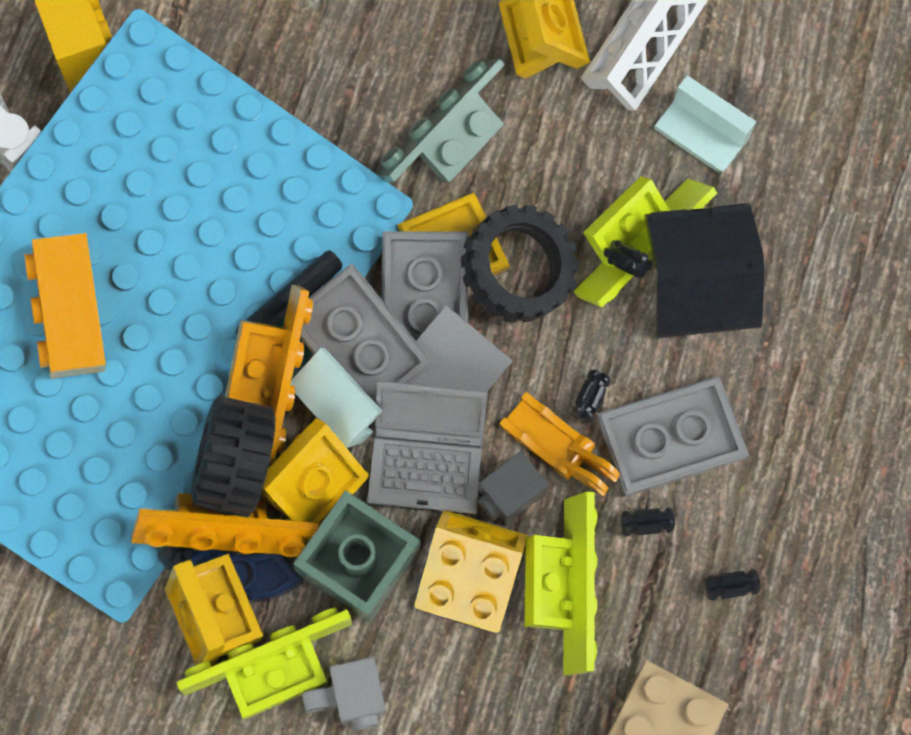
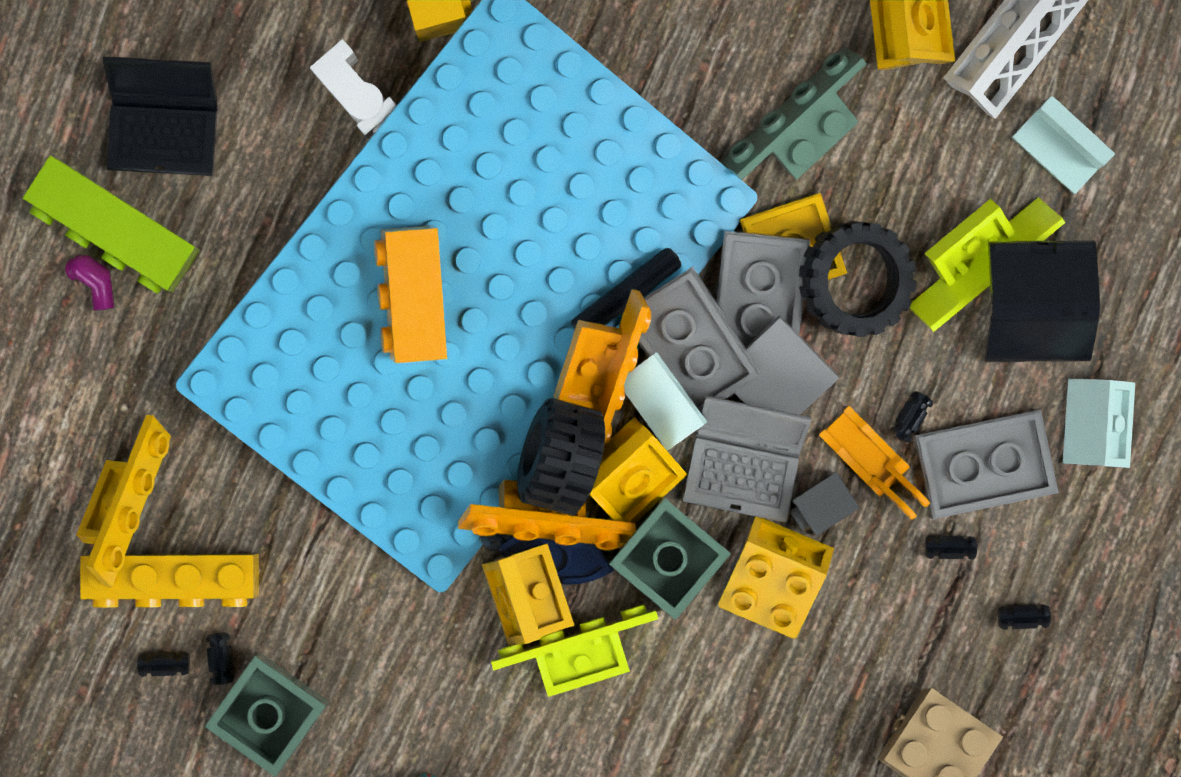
camera: 10 degrees right, 15 degrees up
(354, 692) = (655, 684): light grey brick -> none
(562, 583) = (862, 600): neon yellow bracket -> none
(627, 258) = (965, 287): black piece -> none
(779, 382) = (1099, 422): none -> light aqua panel

